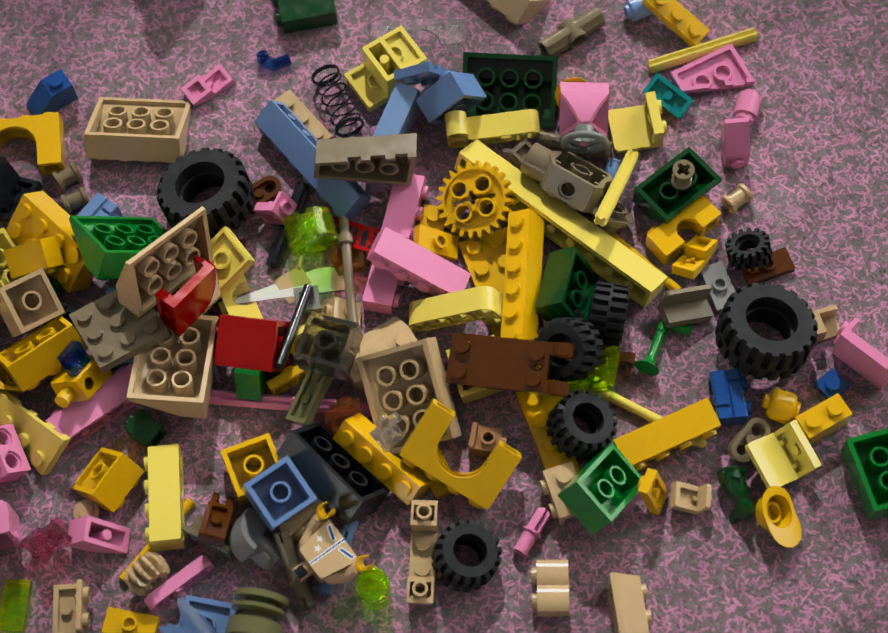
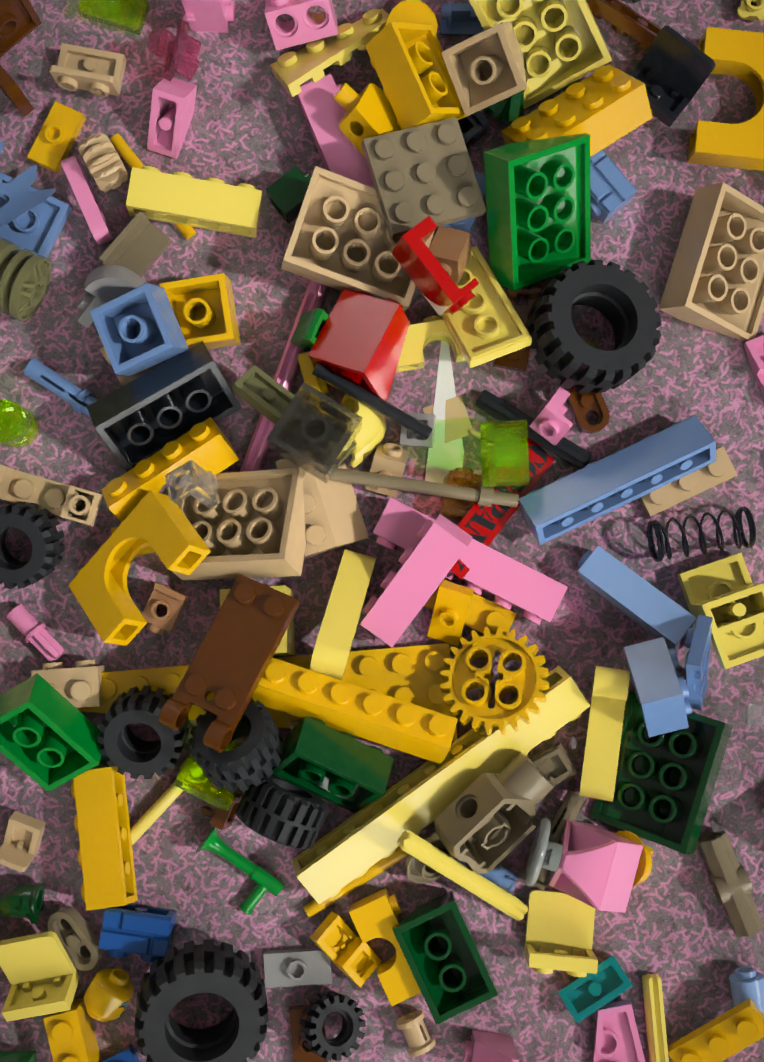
camera: 100 degrees right, 20 degrees up
(34, 255) = (550, 87): yellow brick -> none
(67, 176) = (676, 159): dark tan bush -> none
(74, 358) = (388, 110): clear blue plate -> none
(75, 200) = (637, 164): dark tan bush -> none
(86, 507) = (208, 109): tan plate -> none
(108, 479) = (240, 139): yellow slope -> none
(164, 263) = (476, 244): tan slope -> none
(216, 521) = (139, 252): reddish brown hinge -> none
(290, 561) = (49, 338): dark tan pin -> none
(327, 552) = (55, 377): tan torso -> none
(344, 407) = (245, 437): clear orange bracket -> none
(367, 158) = (584, 547): dark tan wedge -> none
(653, 491) = (32, 794): yellow plate -> none
(682, 174) = (442, 981): dark tan bush -> none
(685, 306) = (271, 913): dark tan panel -> none

